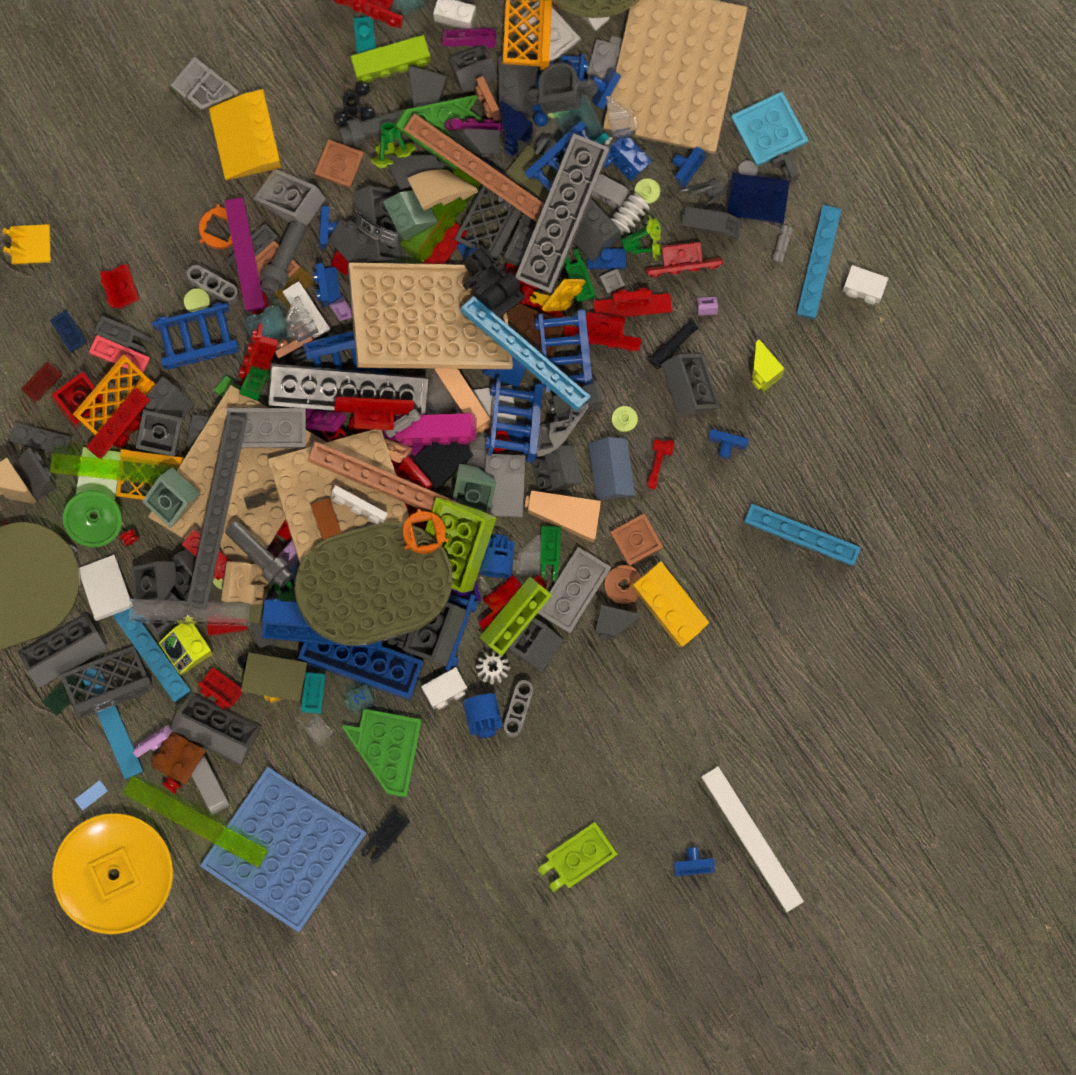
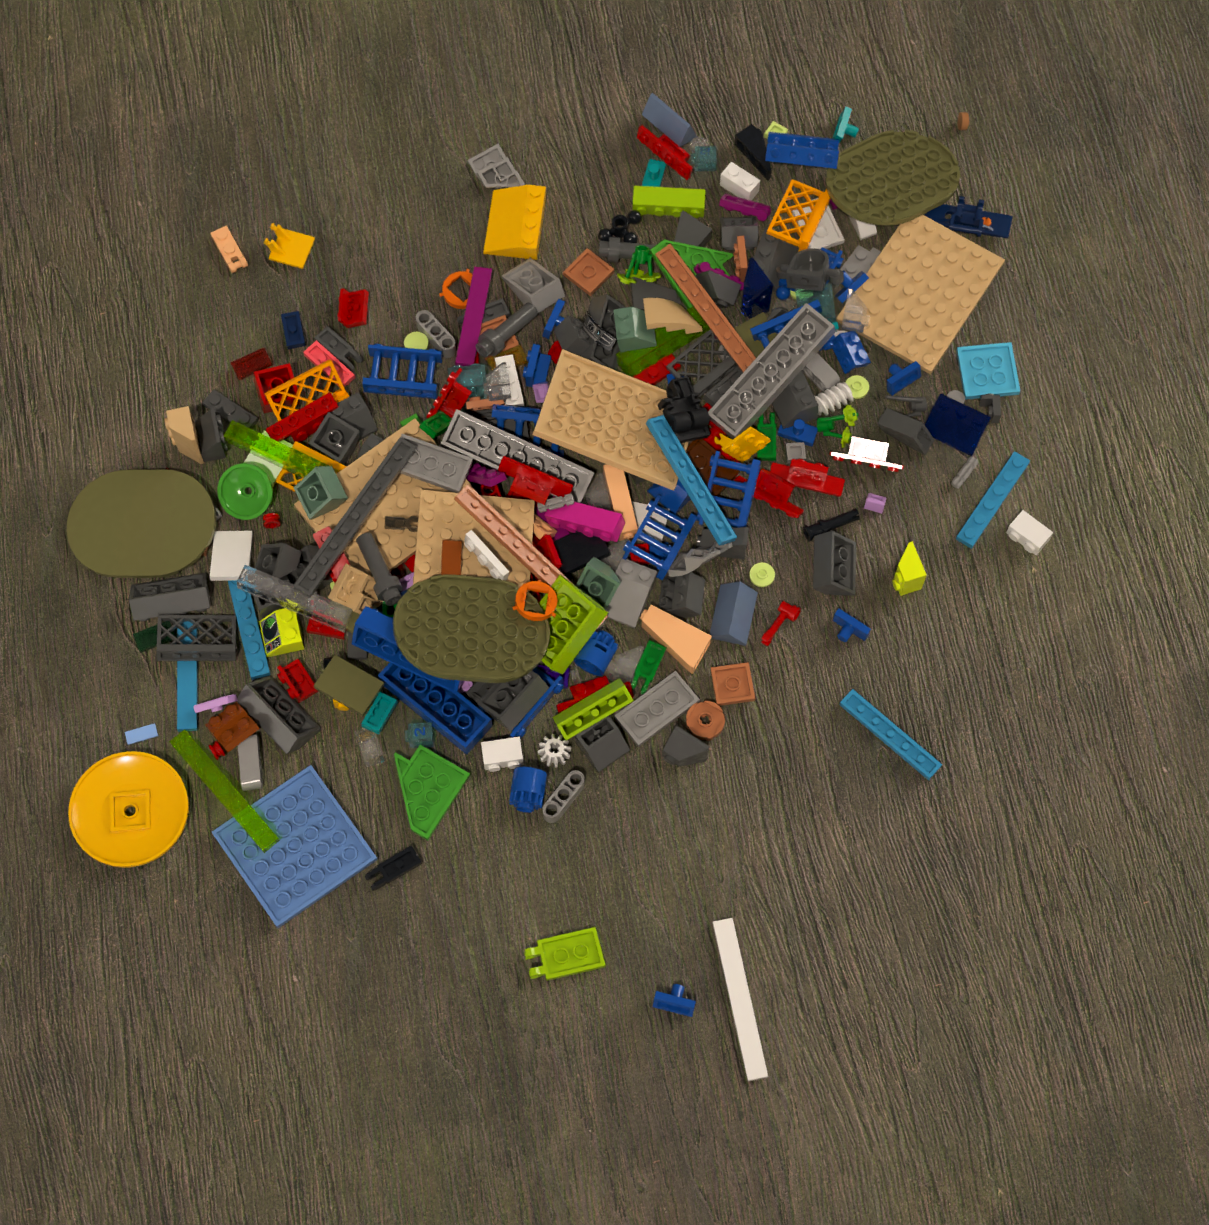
camera: 20 degrees right, 10 degrees down
(670, 604) = (741, 751): yellow slope -> none

